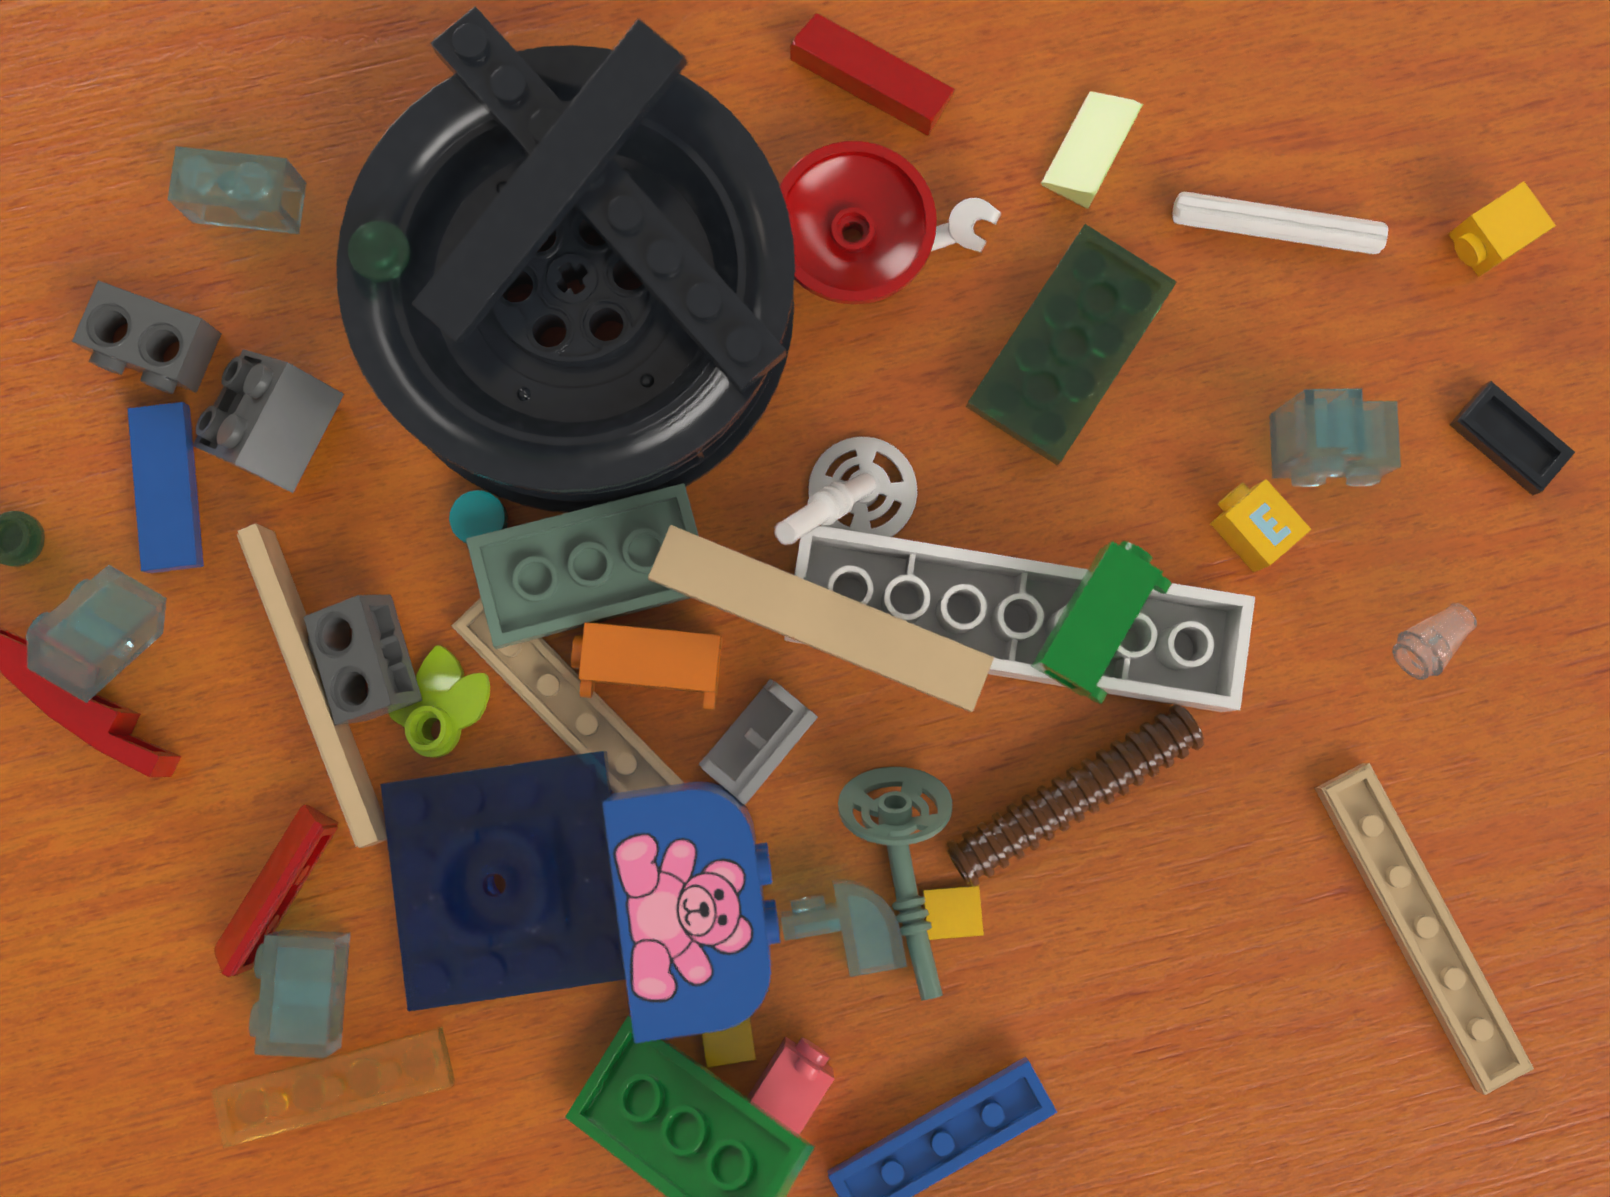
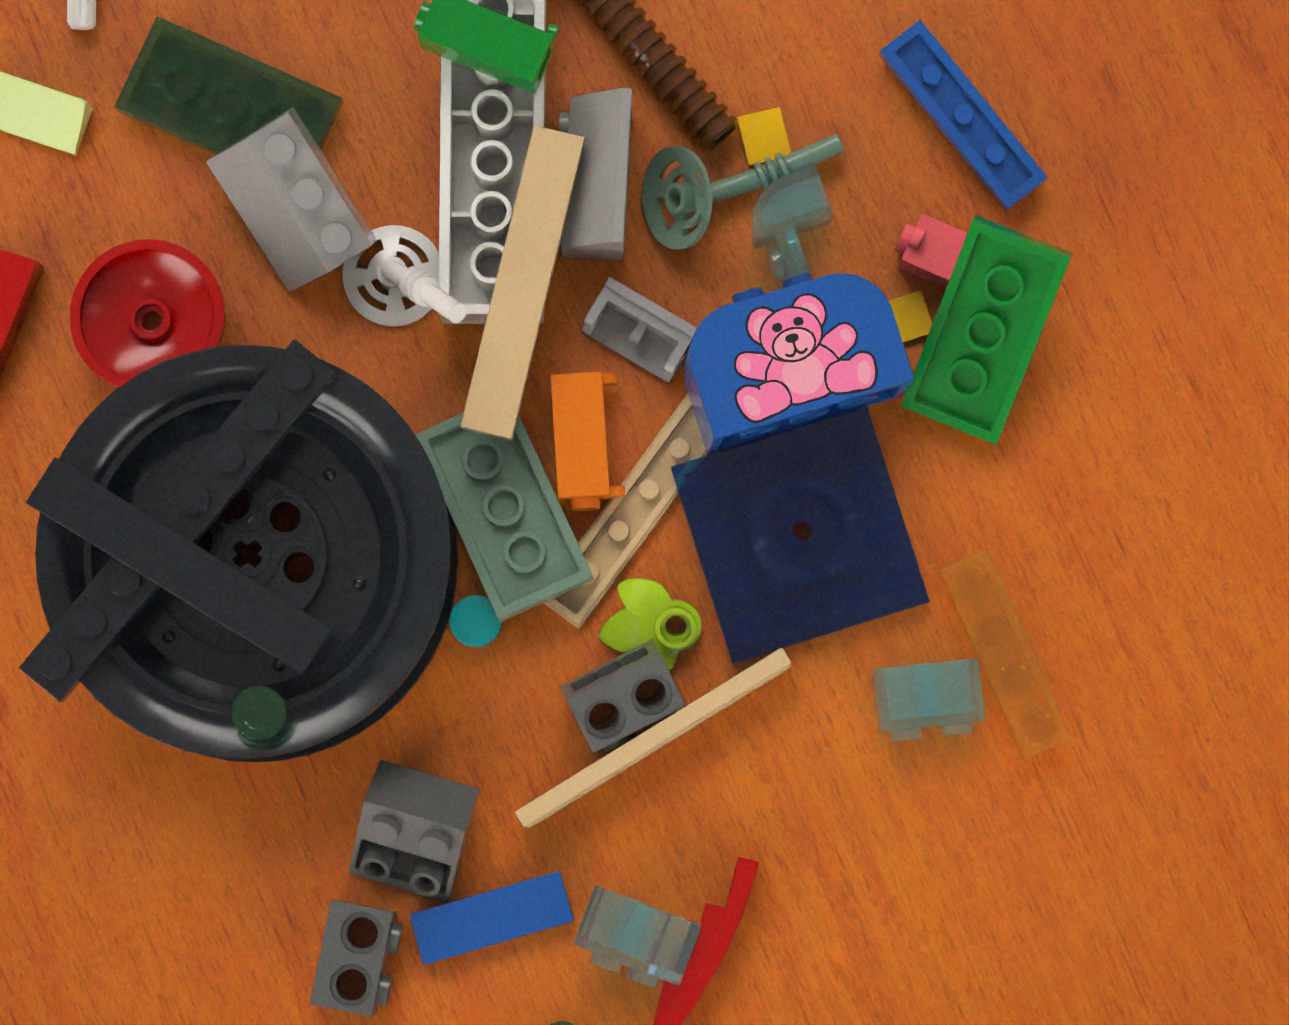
camera: 90 degrees left, 0 degrees up
(237, 190) = (199, 898): clear light blue brick -> none
(274, 889) = (842, 744): red slope -> none
(914, 722) = (599, 197): none -> light grey slope
(955, 392) = (291, 200): none -> light grey slope
(961, 224) = (123, 219): white piece -> none

